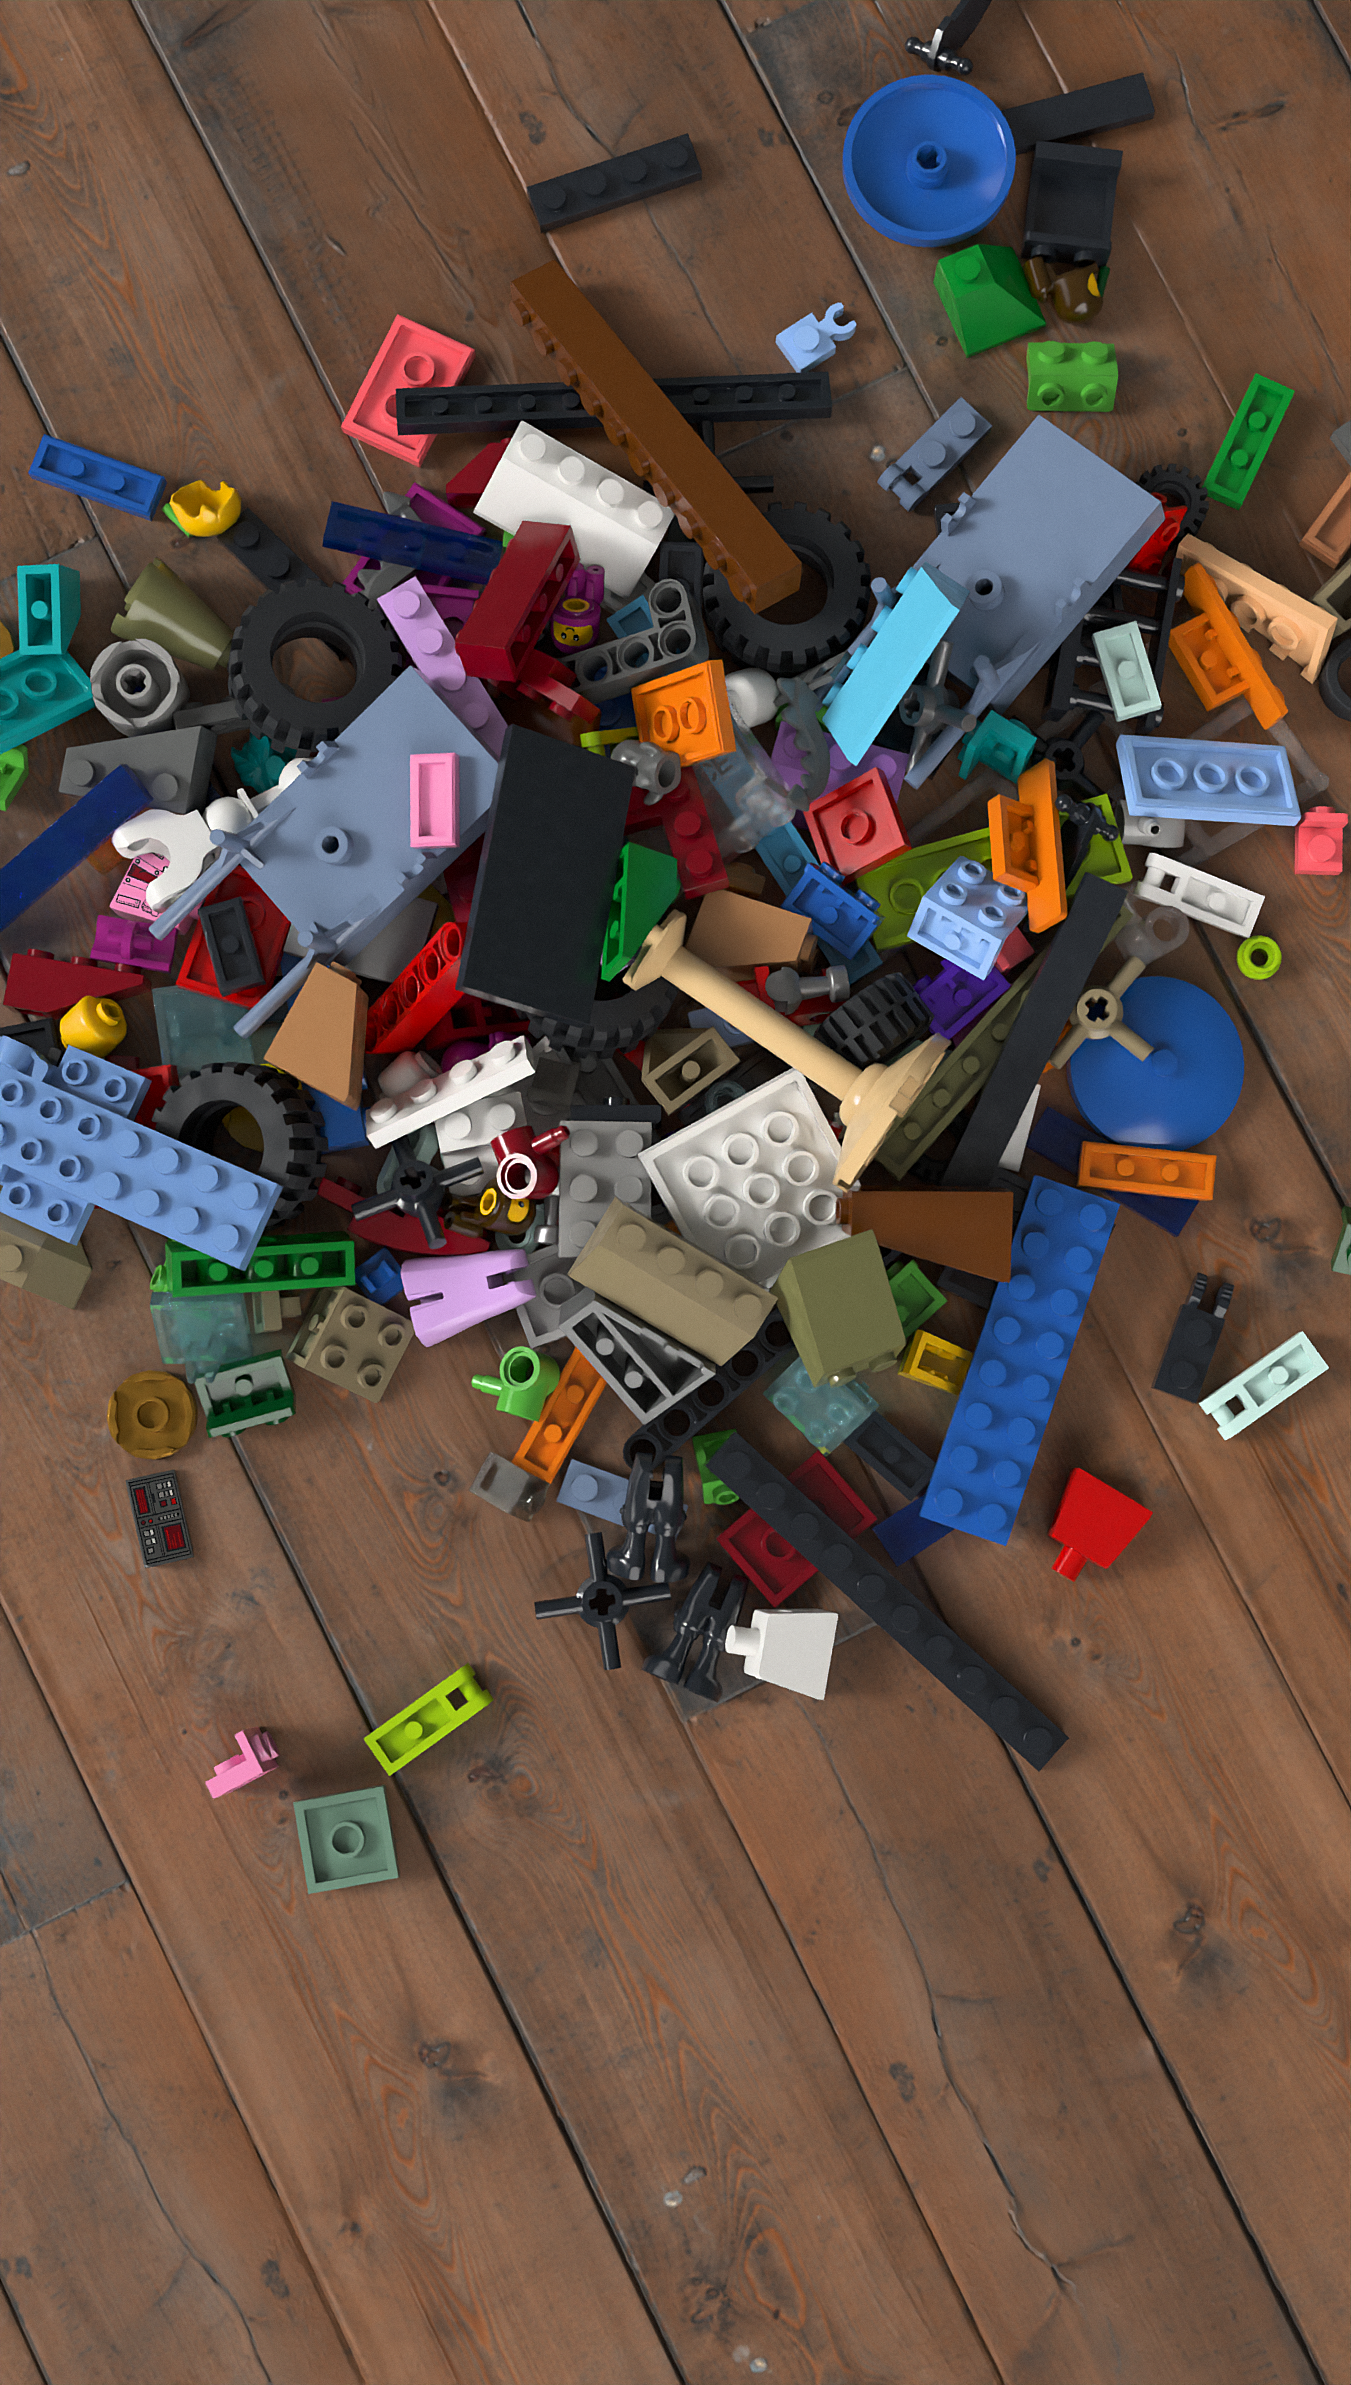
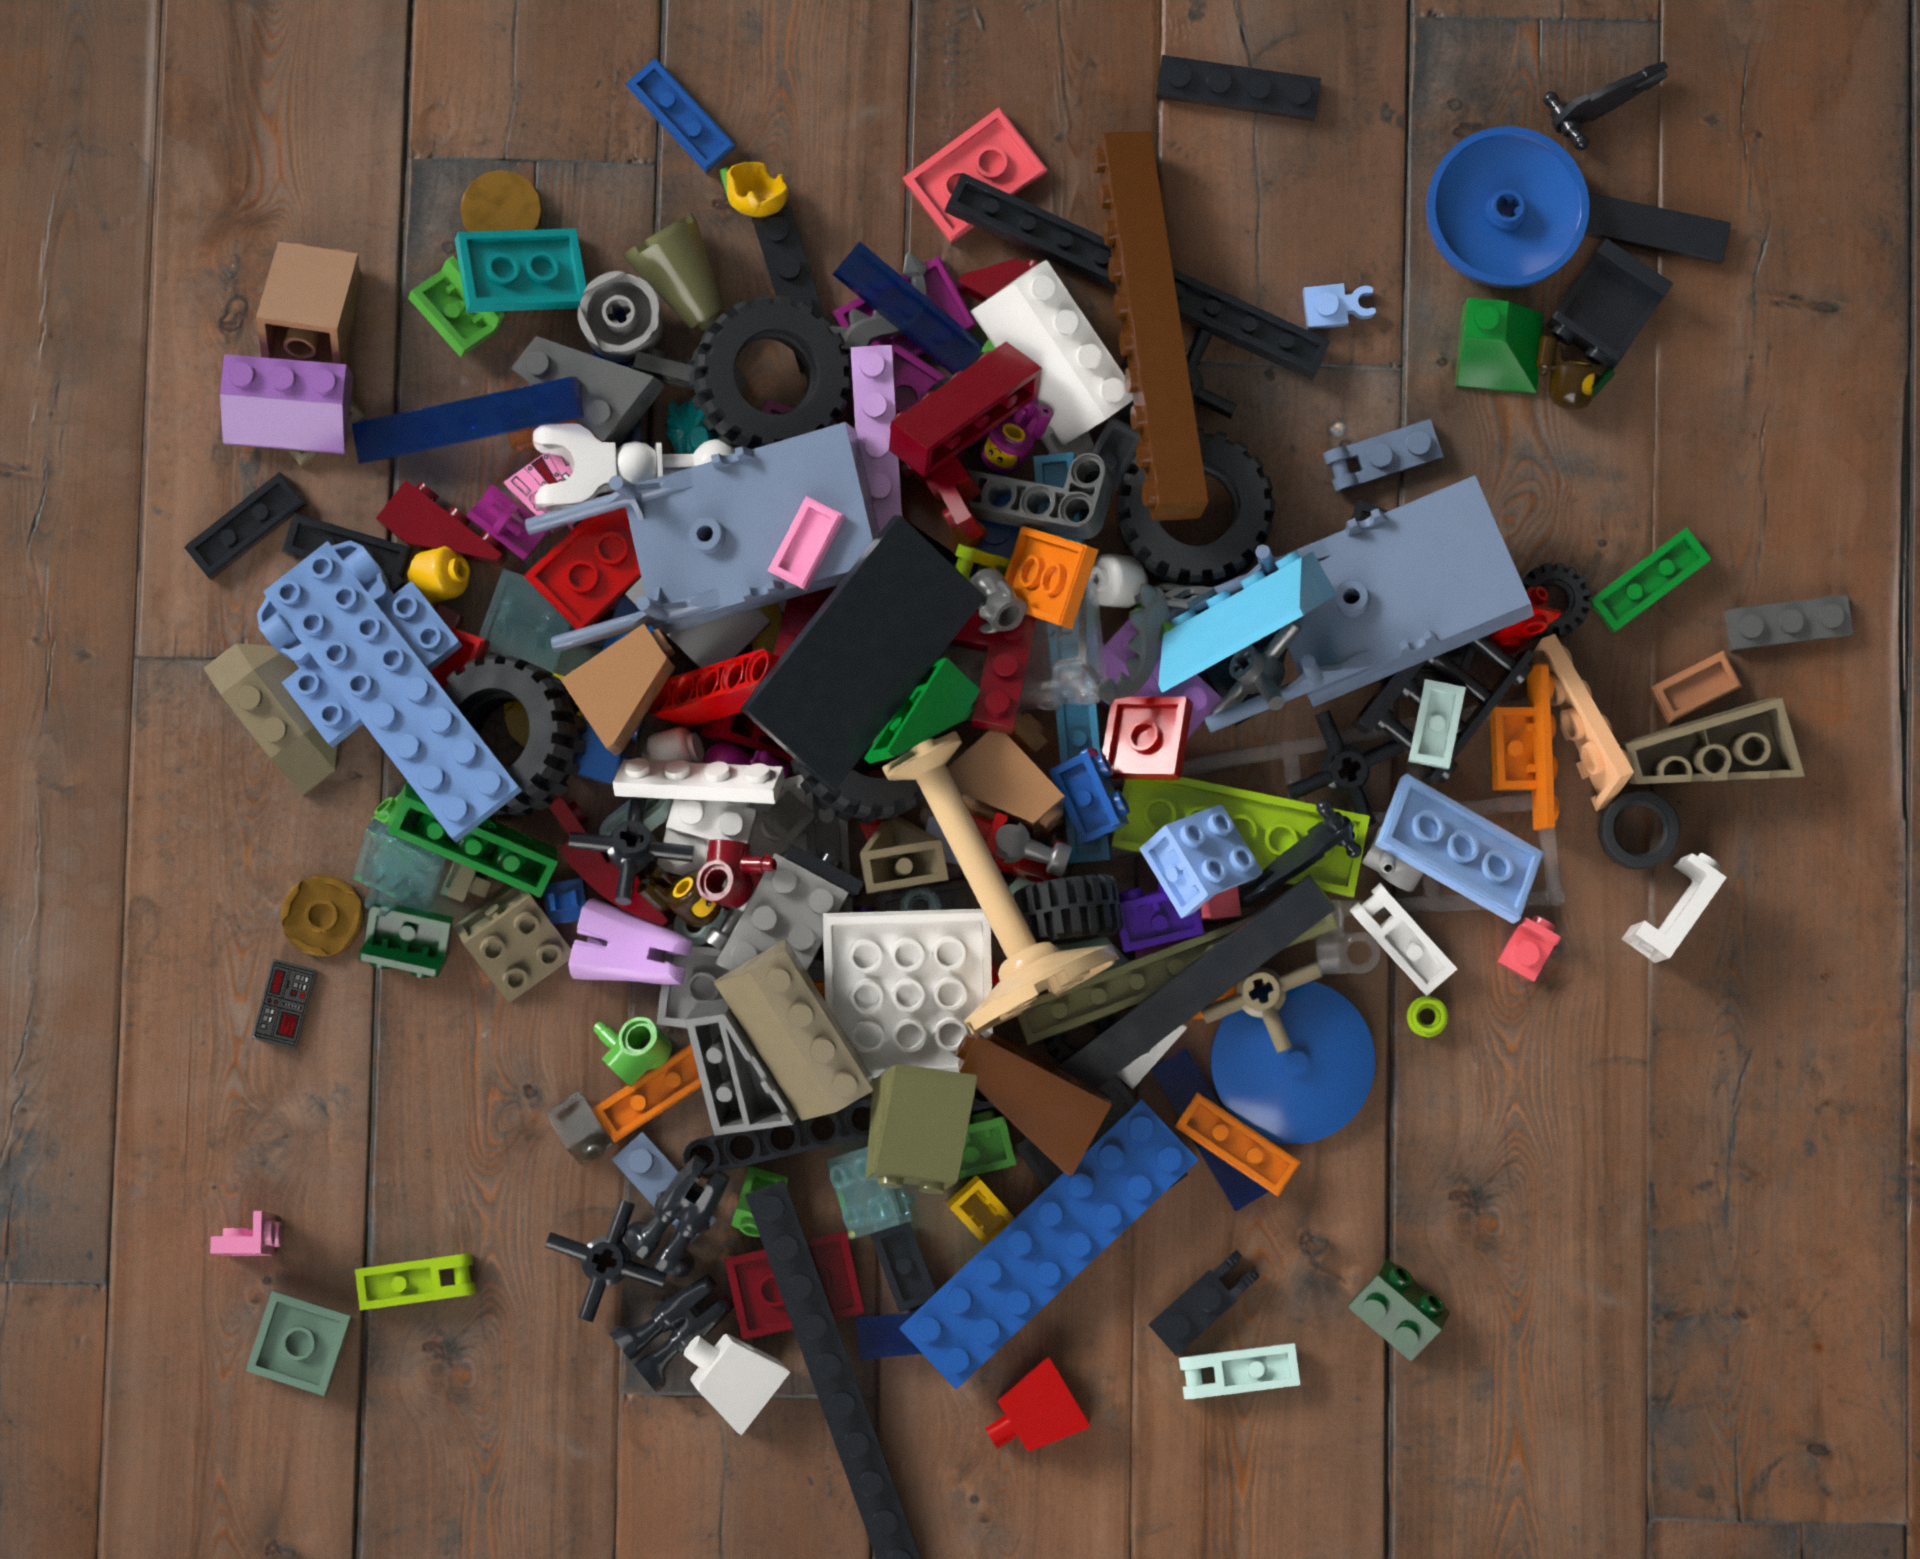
camera: 25 degrees right, 0 degrees up
(47, 608) = (581, 209): teal slope -> none
(231, 946) = (584, 570): black plate -> none
(999, 745) = (1302, 730): teal bracket -> none
(1029, 845) = (1277, 826): orange bracket -> none
(1071, 376) = (1532, 448): bright green bracket -> none

